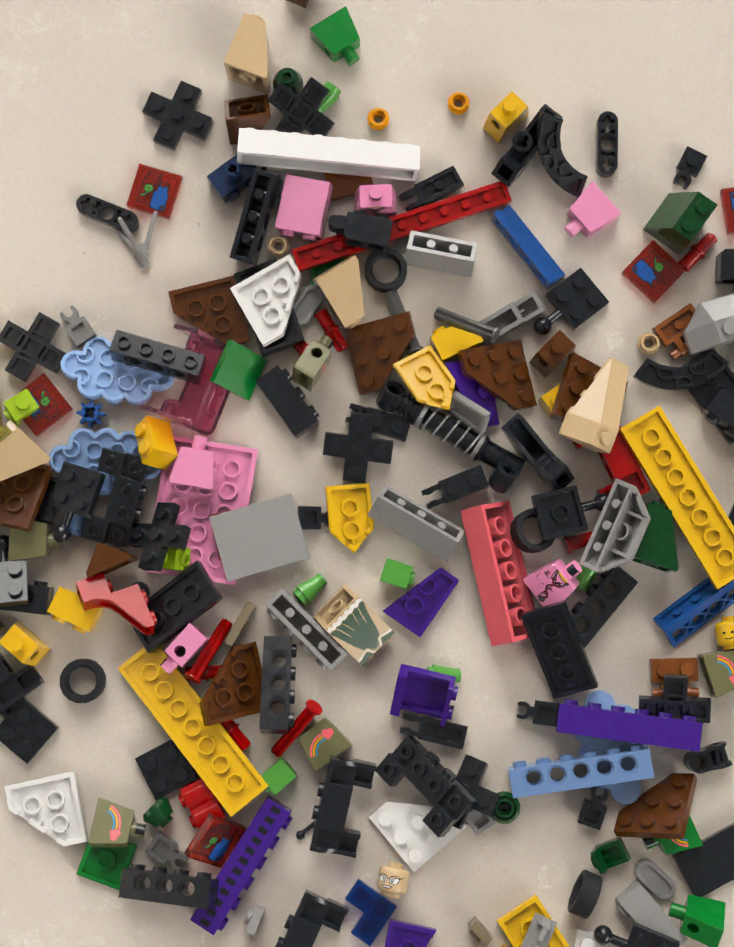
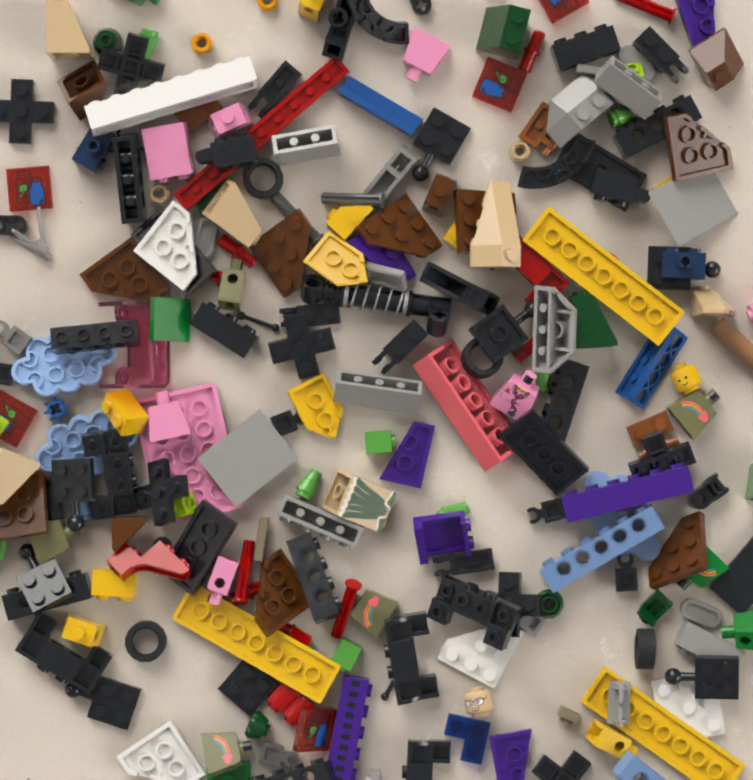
camera: 25 degrees left, 5 degrees up
(311, 396) = (241, 316): none -> black hinge

